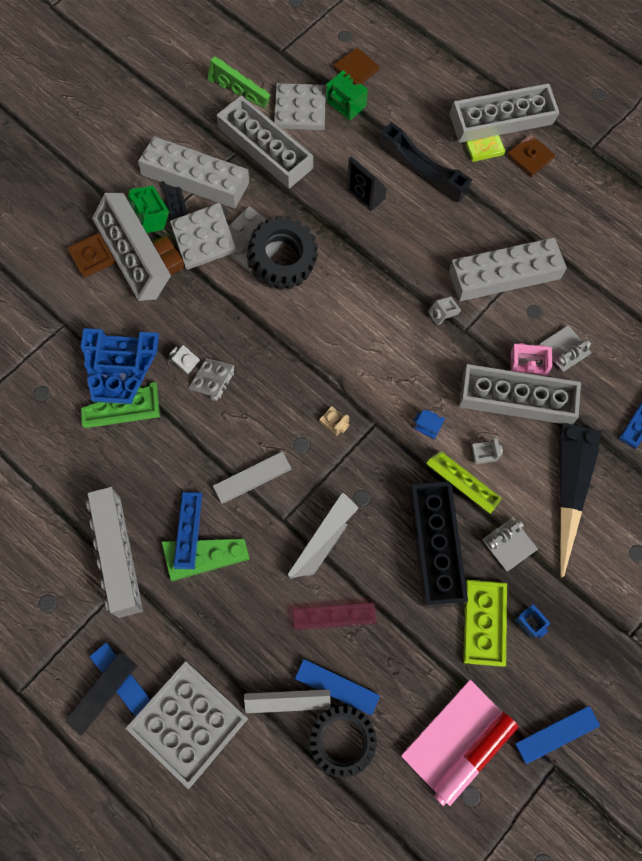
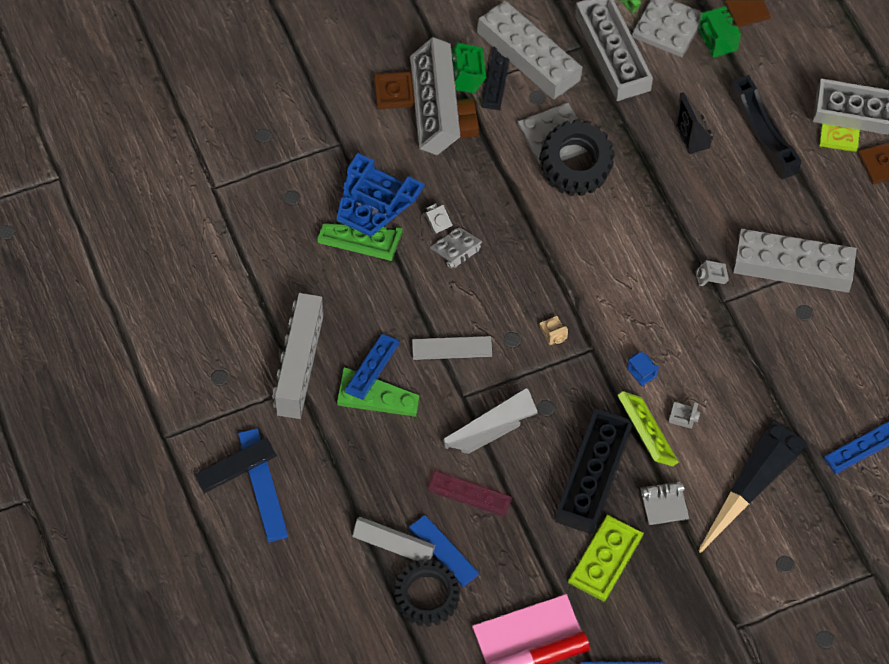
camera: 25 degrees right, 10 degrees down
(187, 724) = (298, 521): light grey plate -> none
(203, 236) = (509, 113): light grey plate -> none
(520, 394) = (743, 376): light grey brick -> none
(531, 359) = (772, 352): bright pink window -> none
(533, 622) = (649, 574): blue window -> none
(567, 348) = (816, 357): light grey hinge -> none

